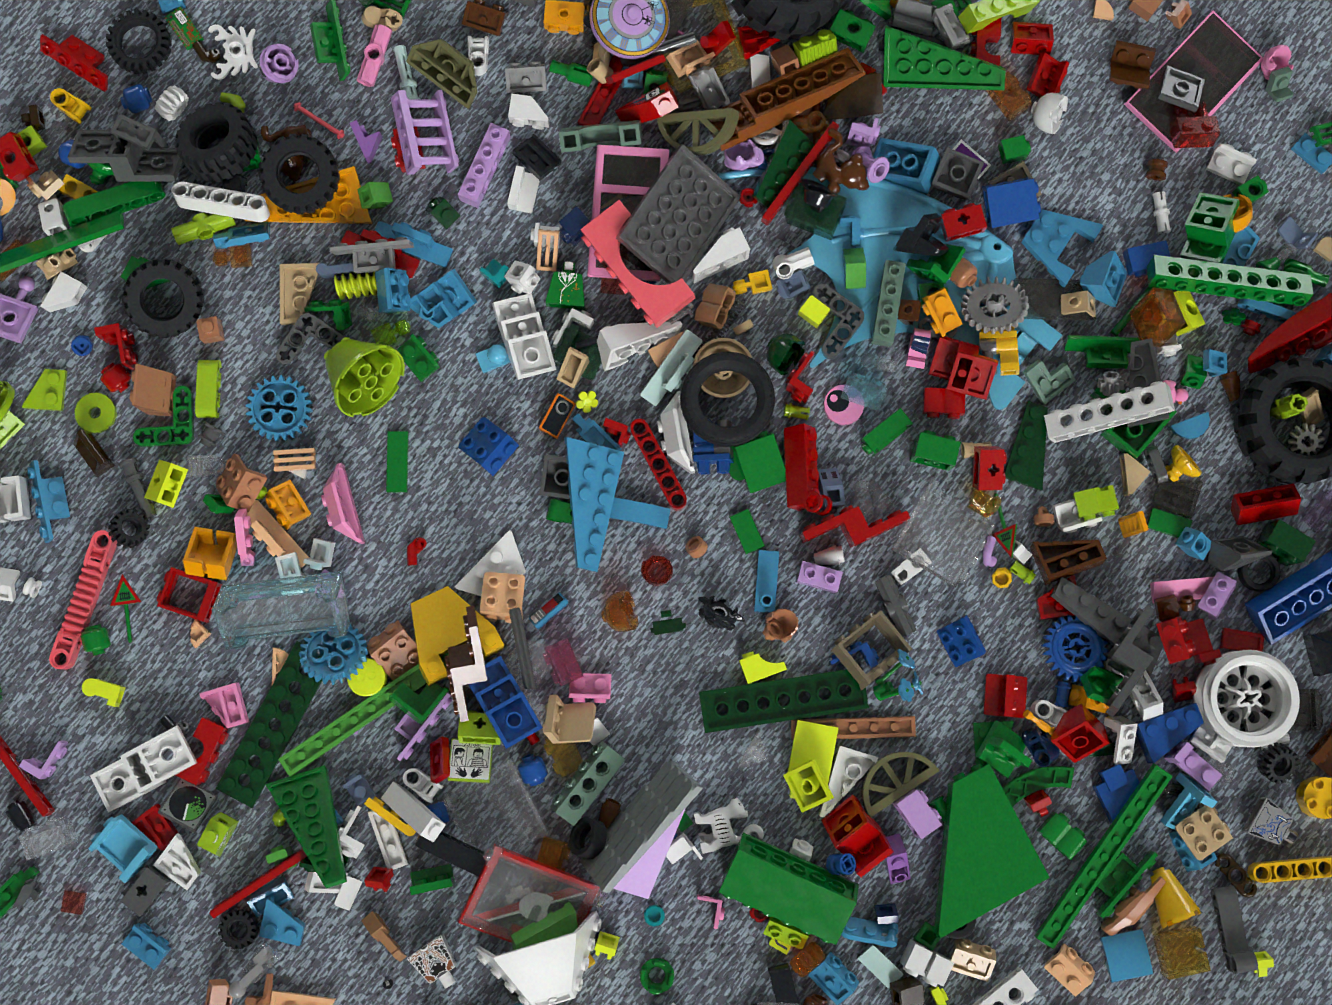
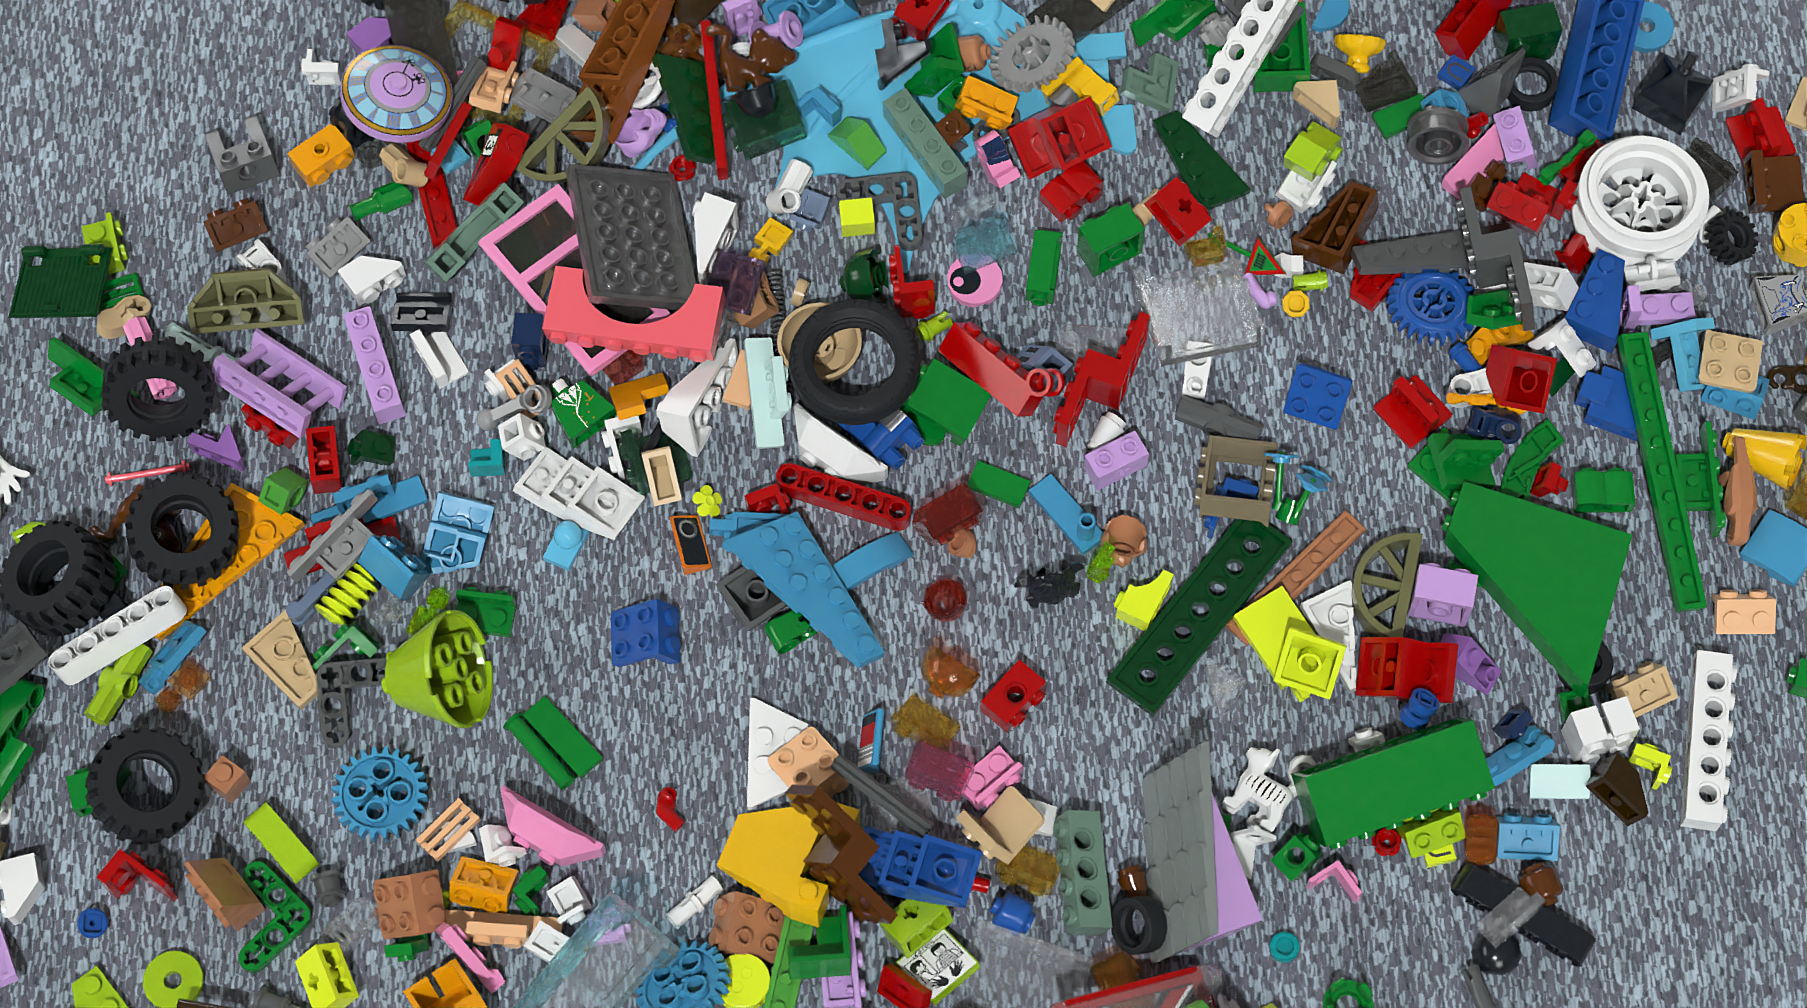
camera: 40 degrees left, 15 degrees down
(115, 377) = (163, 921): red head -> none
(278, 63) = (51, 450): lavender cone -> none
(310, 526) = (529, 885): none -> green bracket
(312, 491) = (498, 845): none -> white bracket
(365, 71) = (158, 361): none -> black tyre
(378, 460) = (539, 751): none -> green pin
(382, 612) = (694, 902): none -> white pin
(410, 197) = (324, 459): none -> red brick
(517, 250) = (489, 418): none -> light grey piece
(583, 627) = (924, 724): none -> clear yellow bracket
(600, 304) = (629, 396): none -> light orange tile
(630, 653) = (1018, 680): none -> red brick
(667, 626) = (1009, 647): dark green piece -> none
(697, 881) = (1289, 865): none -> green brick
(698, 528) = (947, 515): none -> clear red slope
(710, 292) = (739, 278): none -> clear purple slope
(754, 628) = (1099, 568): none -> clear neon green plate
(1133, 524) = (1370, 141): light orange slope -> none
(1174, 556) = (1437, 135): none -> flat silver wheel
(1201, 566) = (1475, 122): none -> red arm
(1217, 633) = (1551, 171): none -> green piece
(1224, 526) = (1456, 72): none -> blue tile

